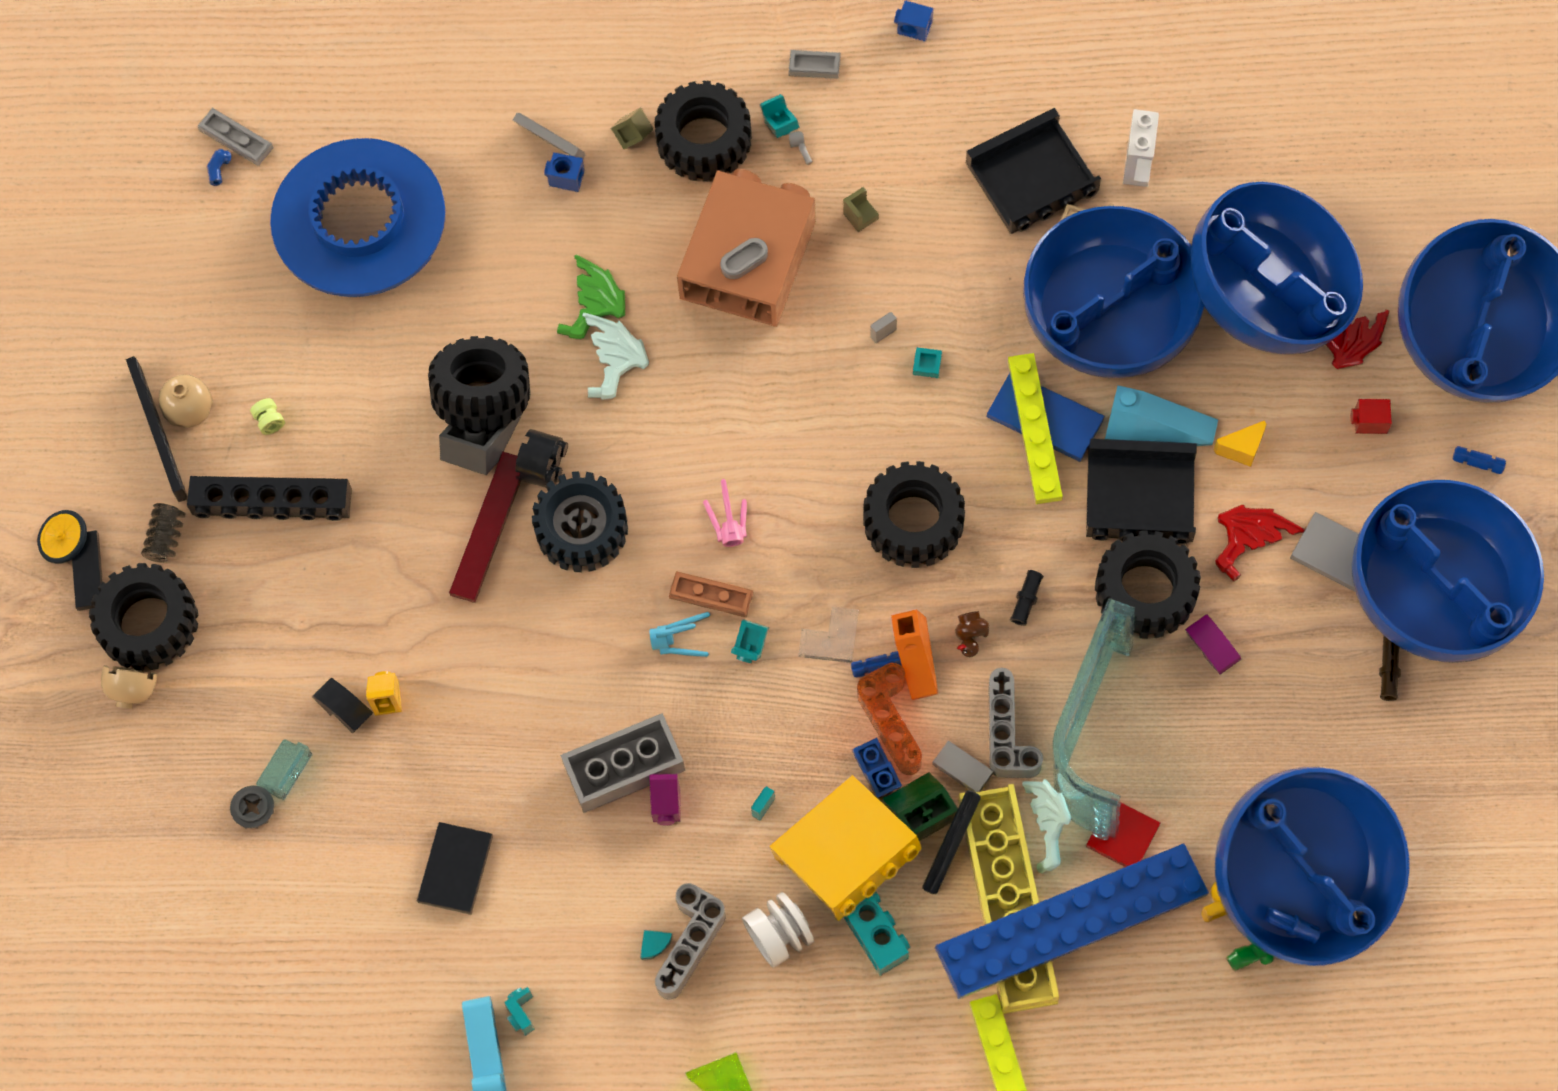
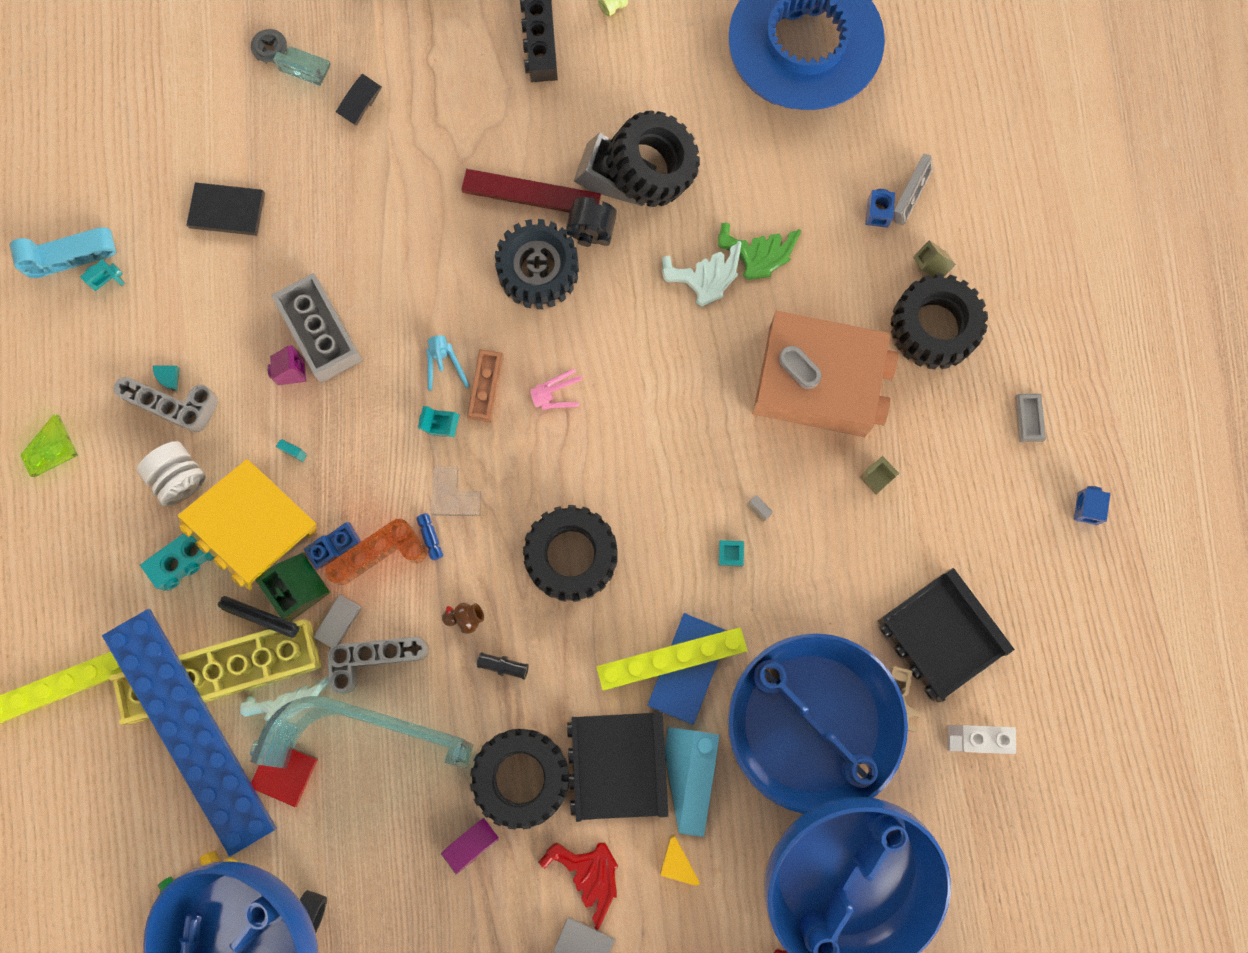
camera: 80 degrees right, 10 degrees up
(384, 693) = (368, 127): yellow slope -> none
(778, 116) = (966, 389): teal bracket -> none
(797, 139) = (946, 410): light grey hand -> none
(915, 653) = (439, 567): orange slope -> none

